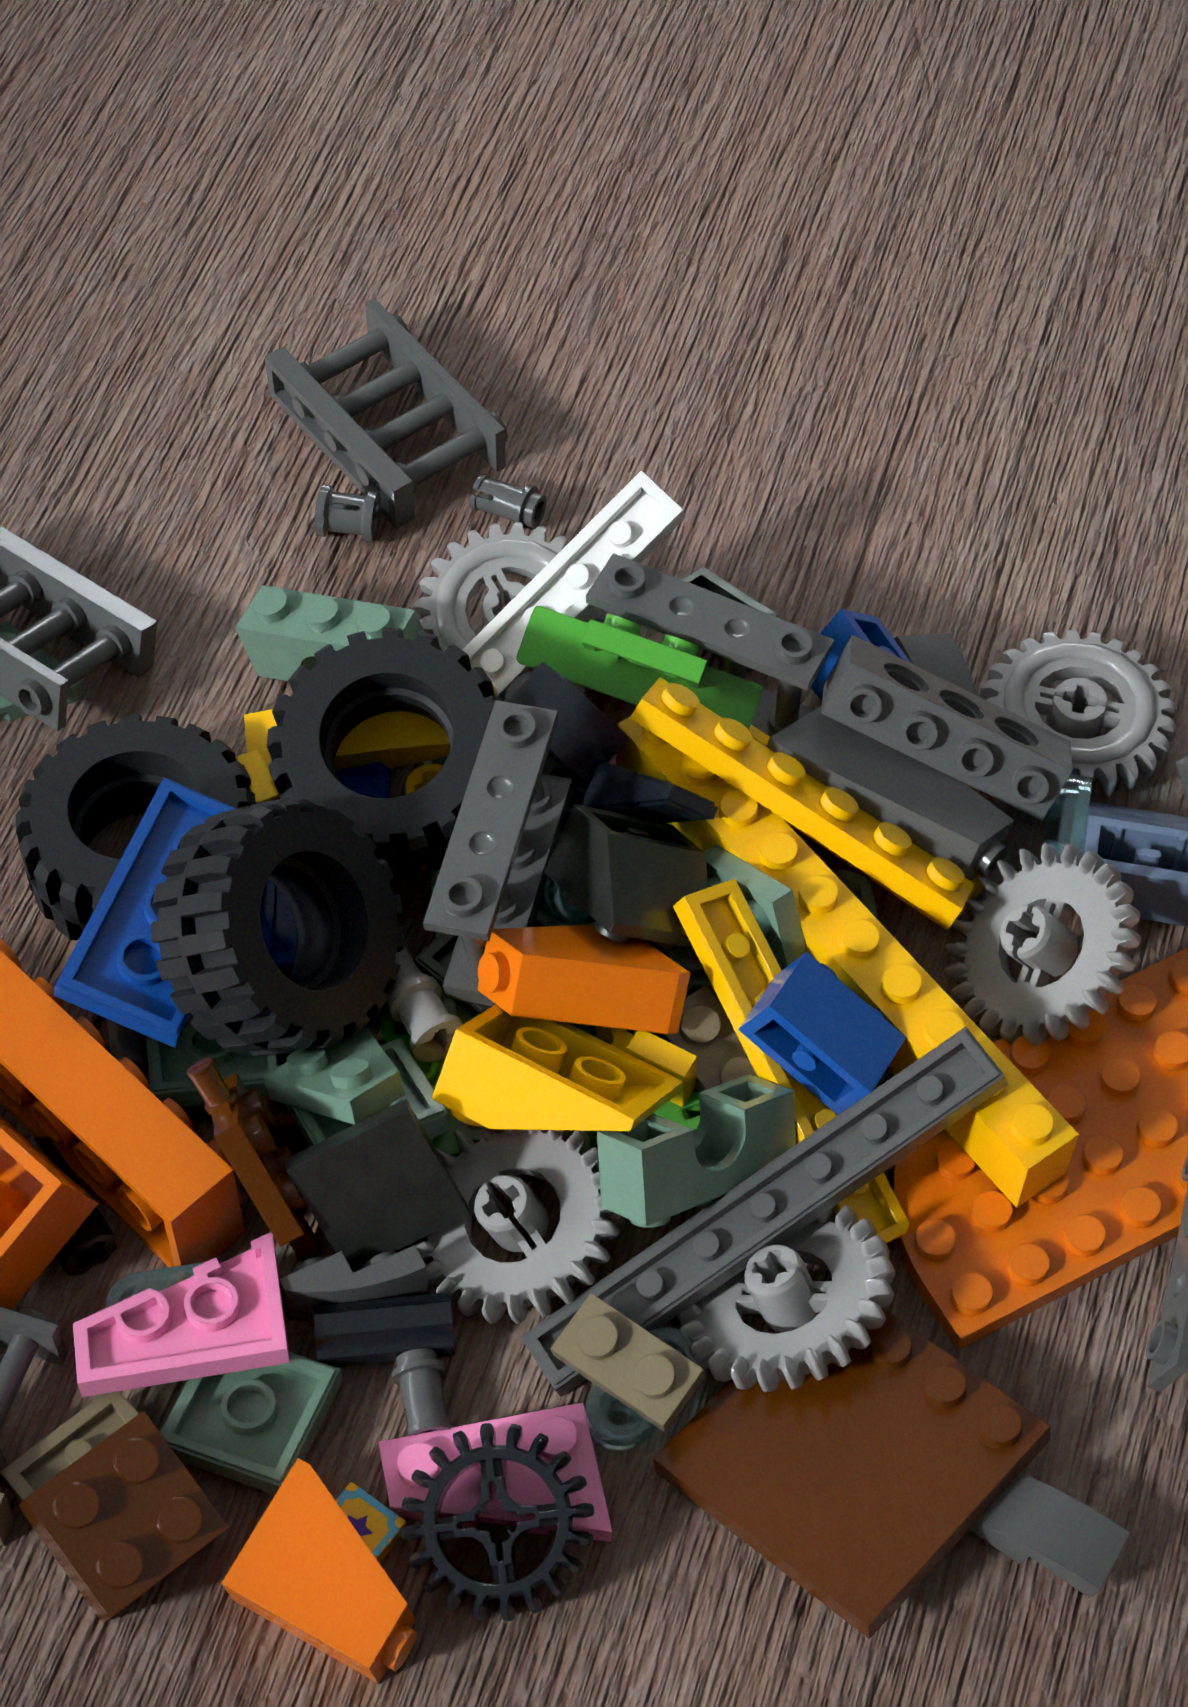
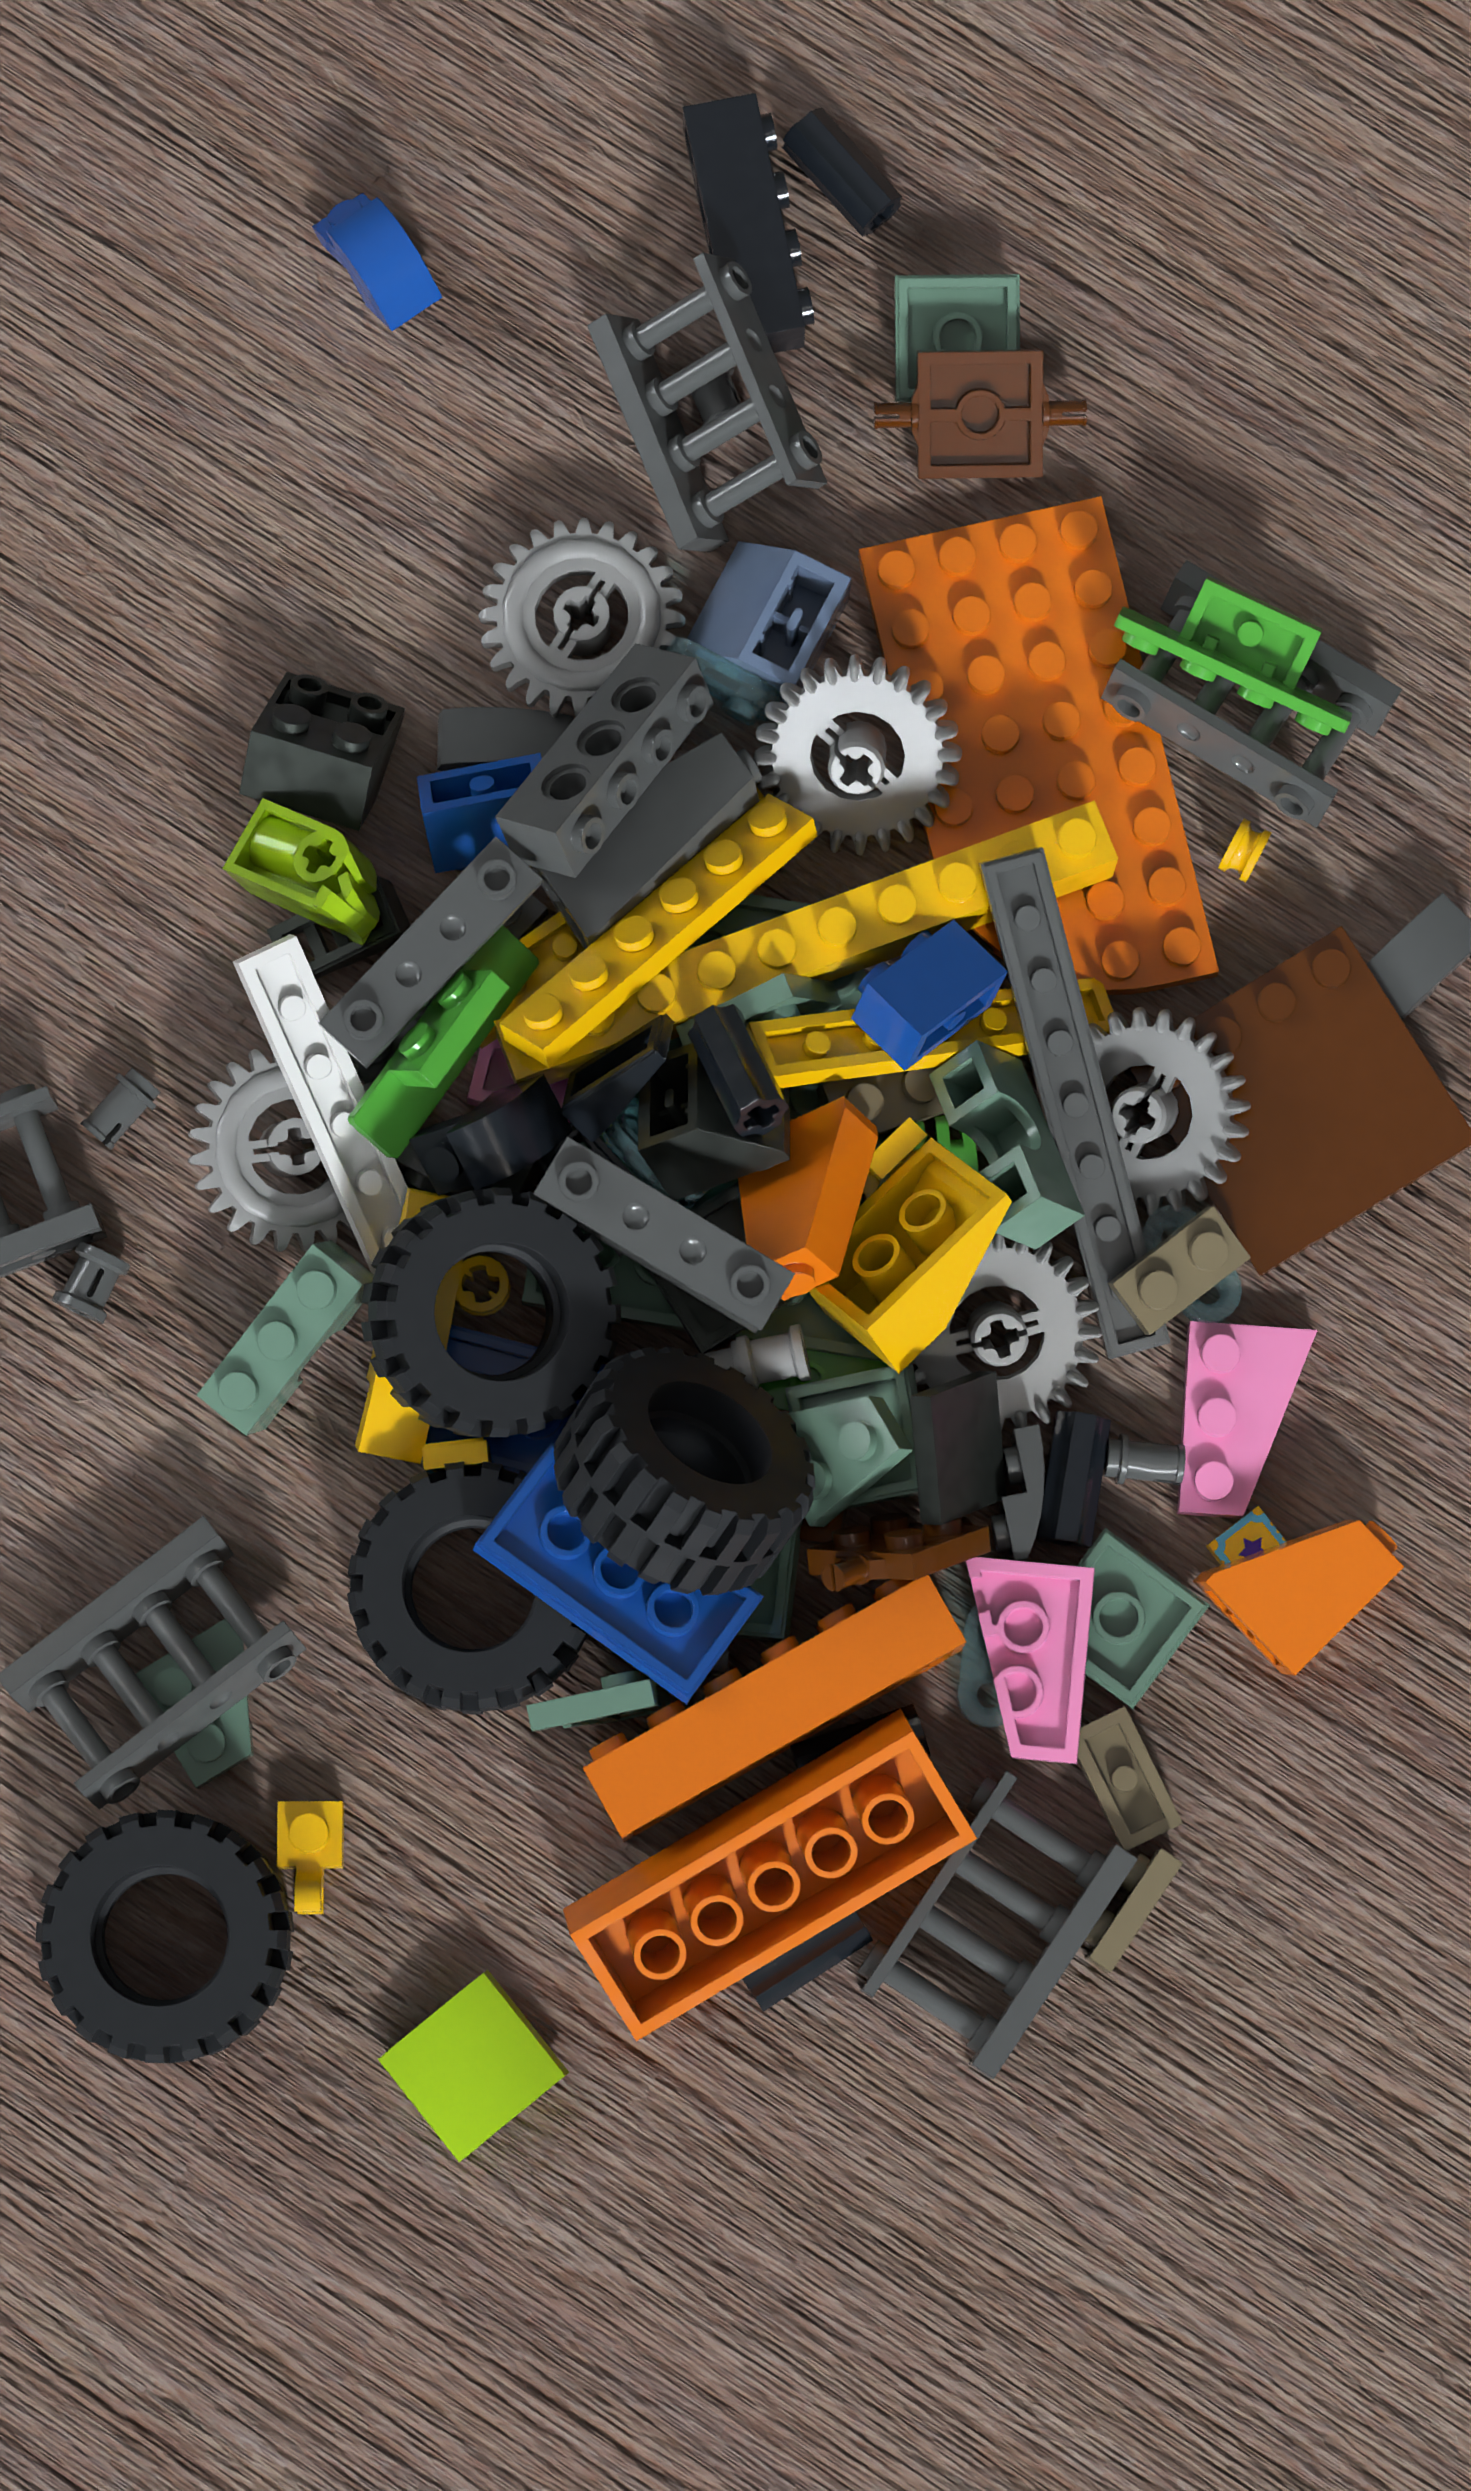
camera: 75 degrees left, 25 degrees up
(45, 945) = (620, 1699): none -> sand green wing
(123, 1516) = (1208, 1748): reddish brown brick -> none
(437, 1529) = (1284, 1472): black gear -> none
(680, 867) = (738, 1070): none -> black axle
(763, 558) = (306, 870): none -> lime piece
(875, 555) = (321, 750): none -> pearl dark grey slope
(1096, 1330) = (1245, 850): none -> yellow bush

